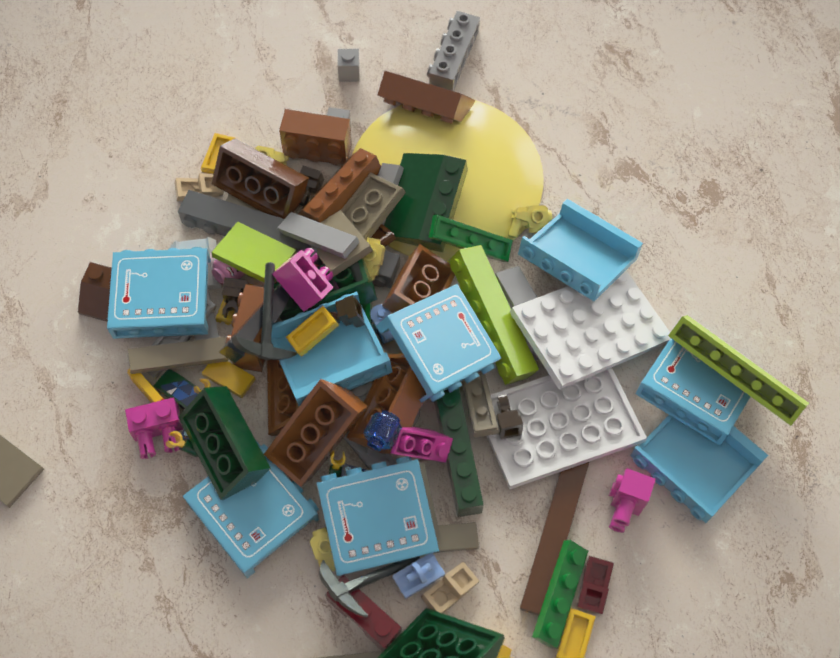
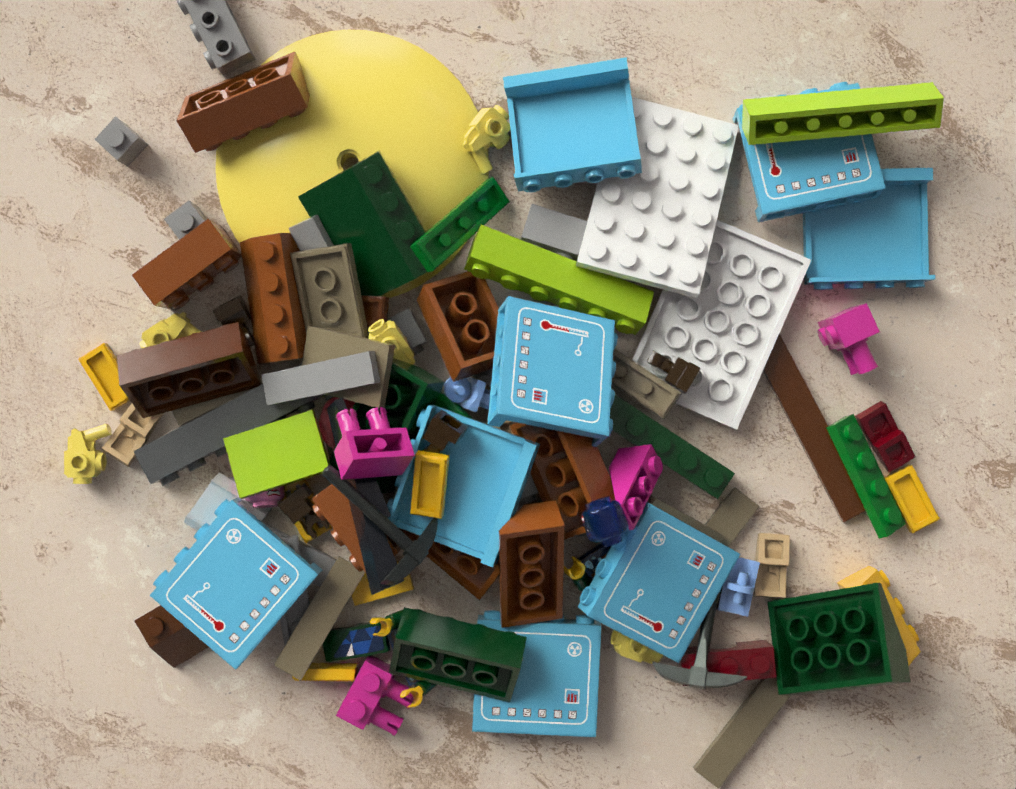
camera: 50 degrees left, 25 degrees up
(161, 174) = (81, 458): none -> light yellow piece

